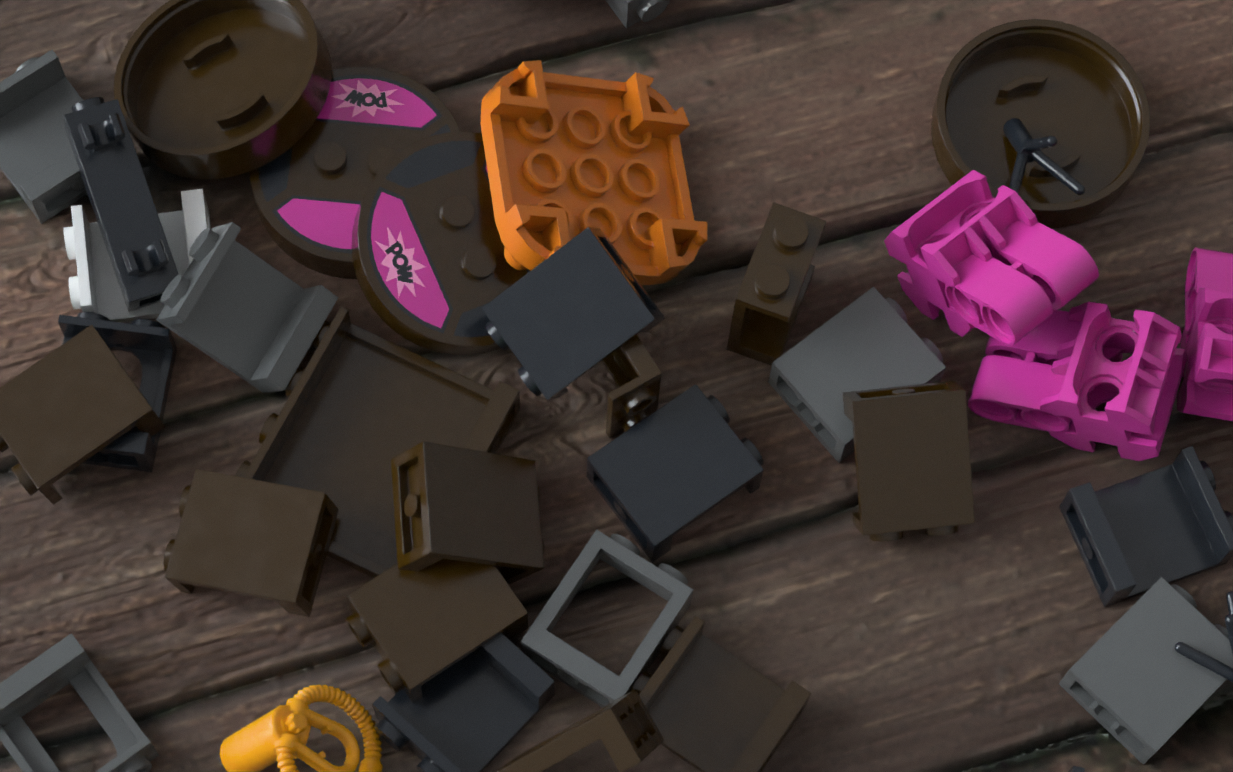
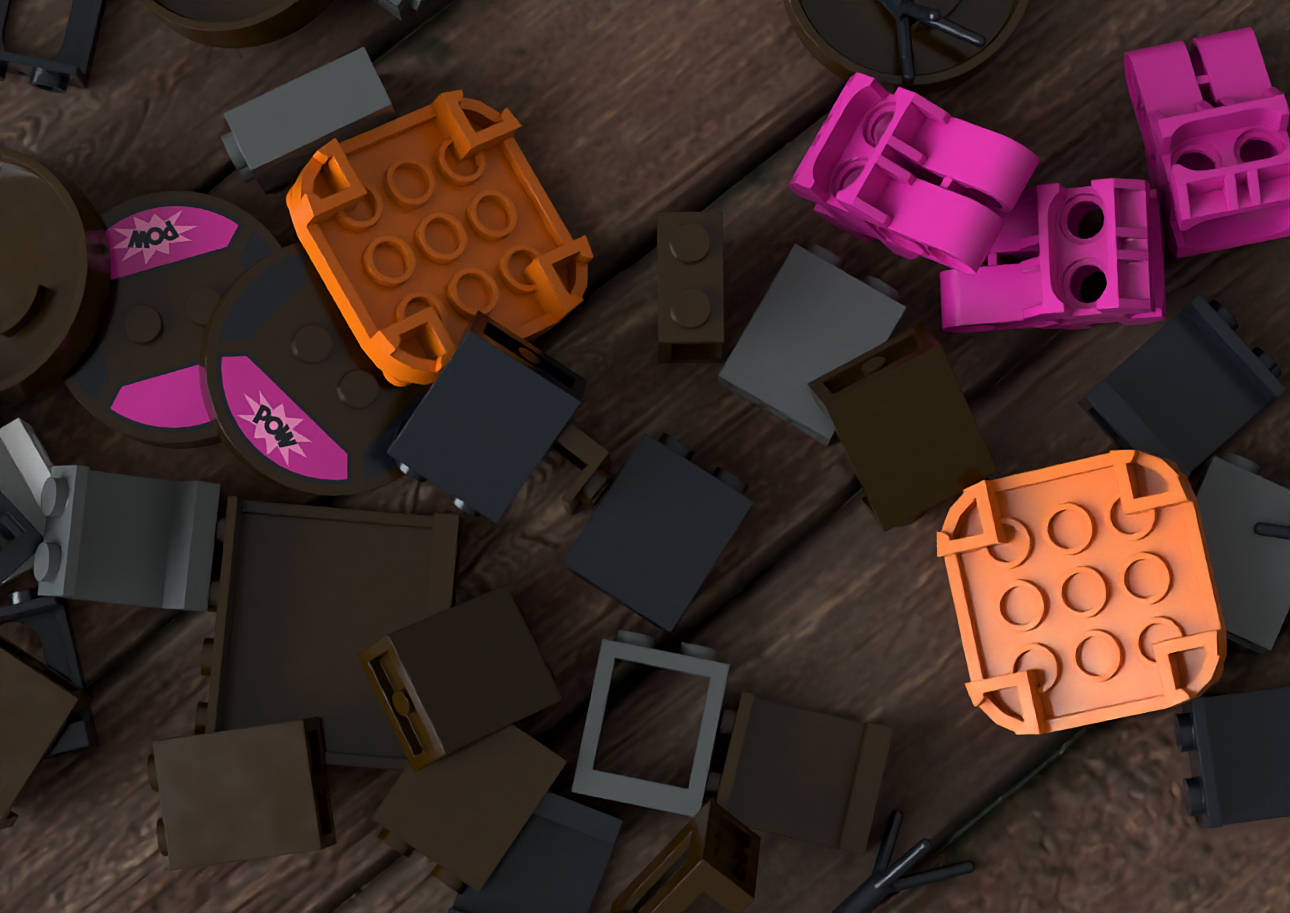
camera: 15 degrees left, 15 degrees up
(502, 40) = (286, 126): none -> dark grey brick
(1013, 644) = (1084, 592): none -> orange plate

